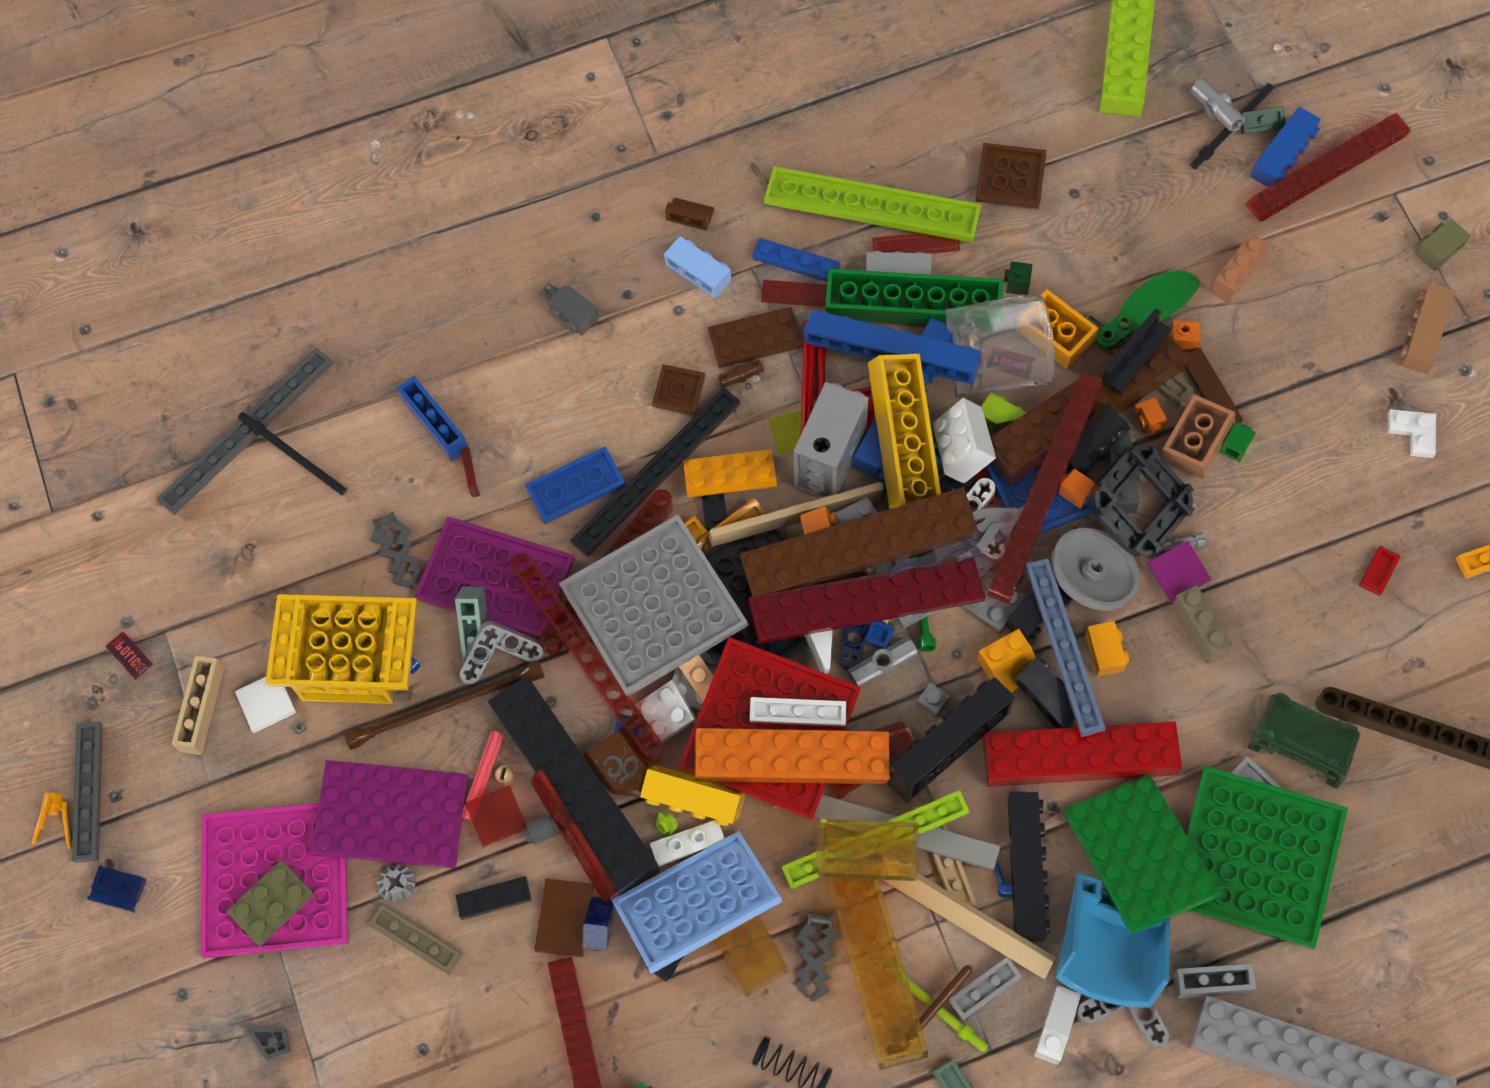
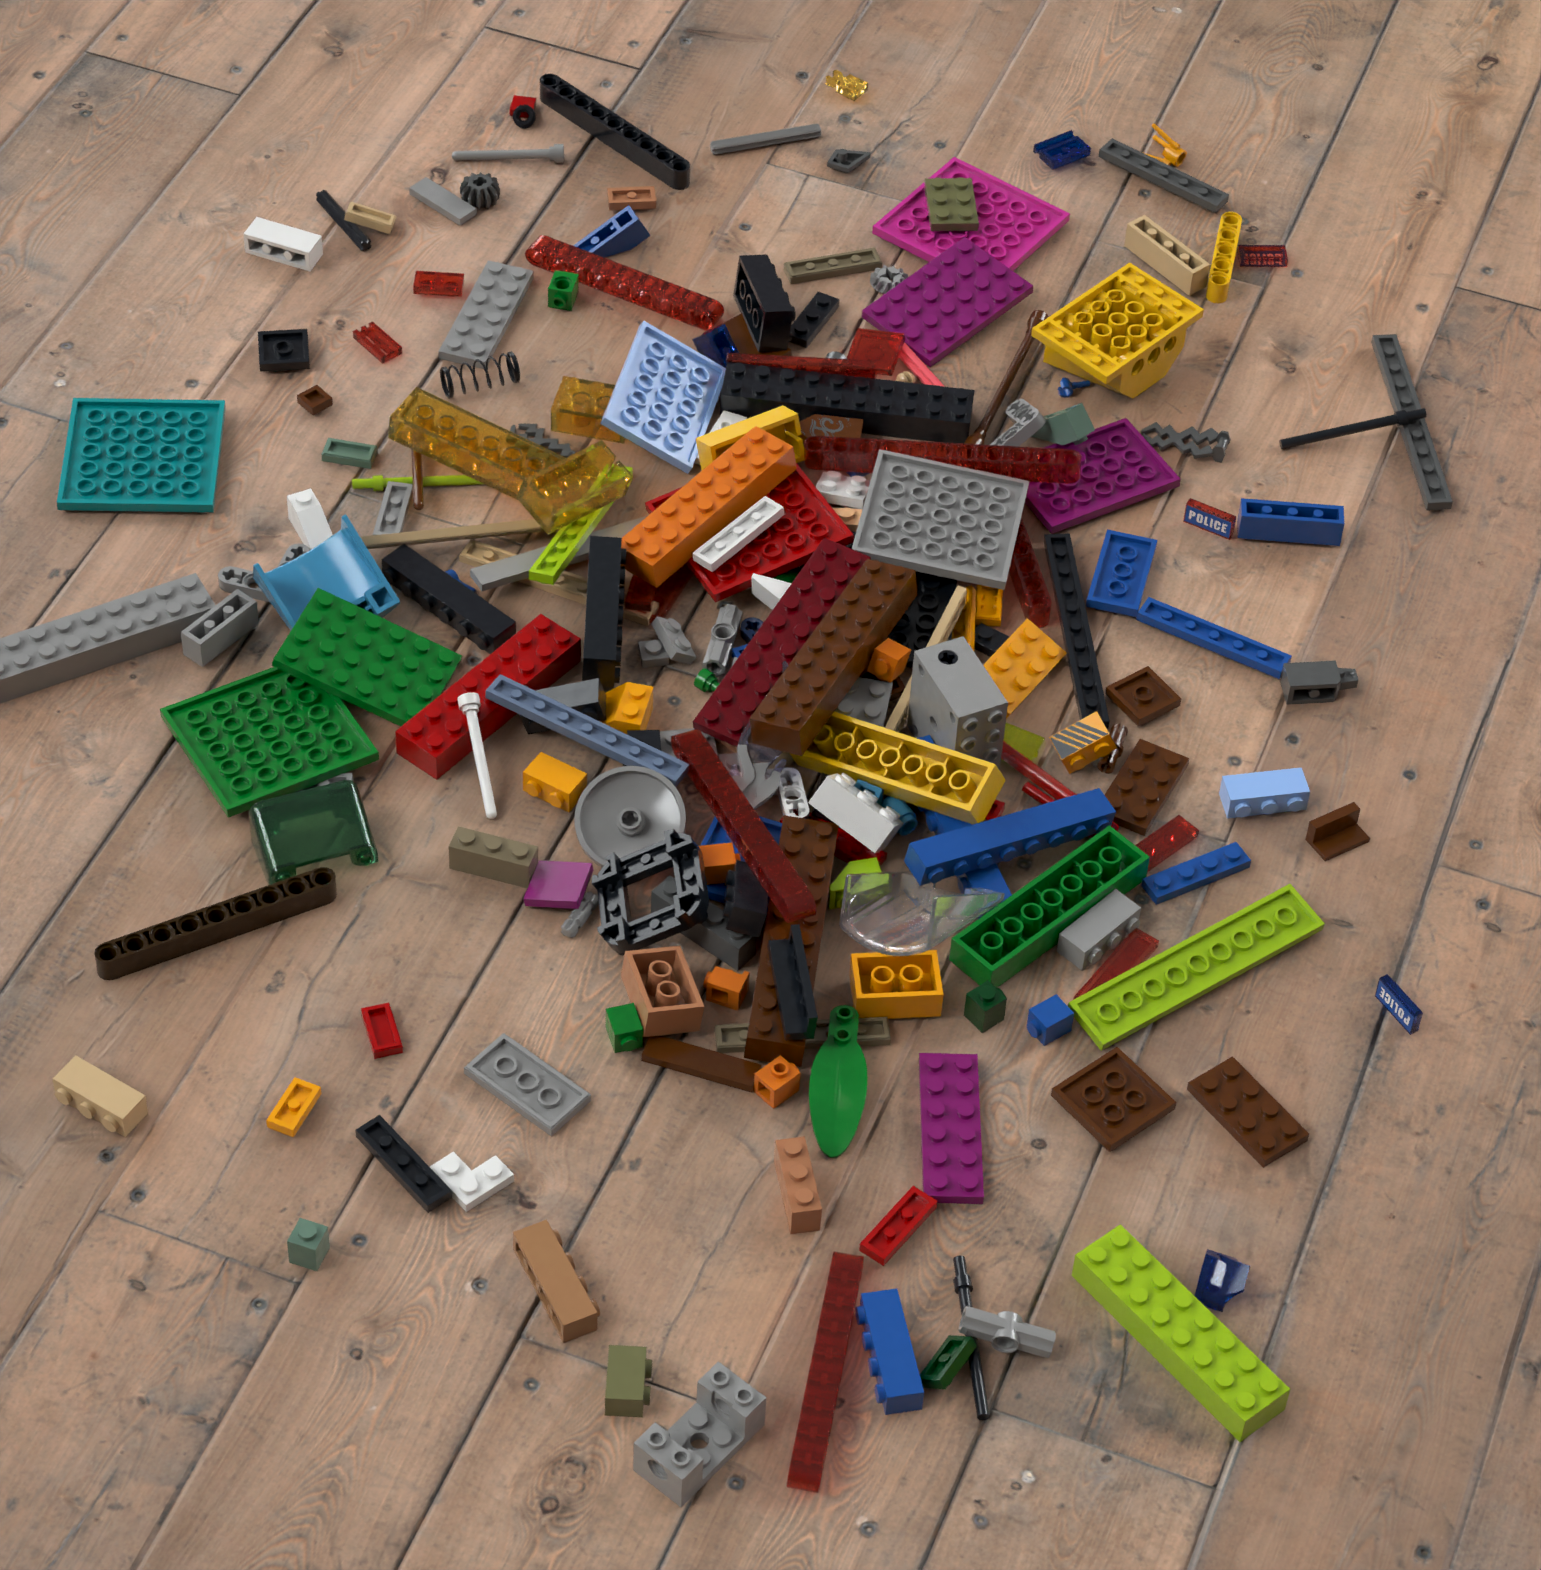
camera: 125 degrees right, 20 degrees down
(149, 671) = (1223, 257): none -> yellow beam
(526, 925) = (763, 303): none -> black brick
(584, 391) = (1213, 637): none -> blue plate
(762, 381) = (1083, 742): none -> light orange brick
(796, 94) = (1398, 1004): none -> tile
(913, 692) = (673, 640): none -> light grey plate
(946, 115) = (1247, 1111): none -> reddish brown plate
(992, 243) = (1050, 1020): none -> blue brick
(1071, 48) = (1220, 1280): none -> clear blue slope
(1113, 237) = (951, 1128): none -> magenta plate
(1123, 731) = (470, 704): none -> white piece
(1207, 206) = (898, 1225): none -> red plate
(1325, 462) = (527, 1084): none -> light grey tile
(1449, 469) = (403, 1163): none -> black plate
(1456, 186) = (724, 1416): none -> light grey plate

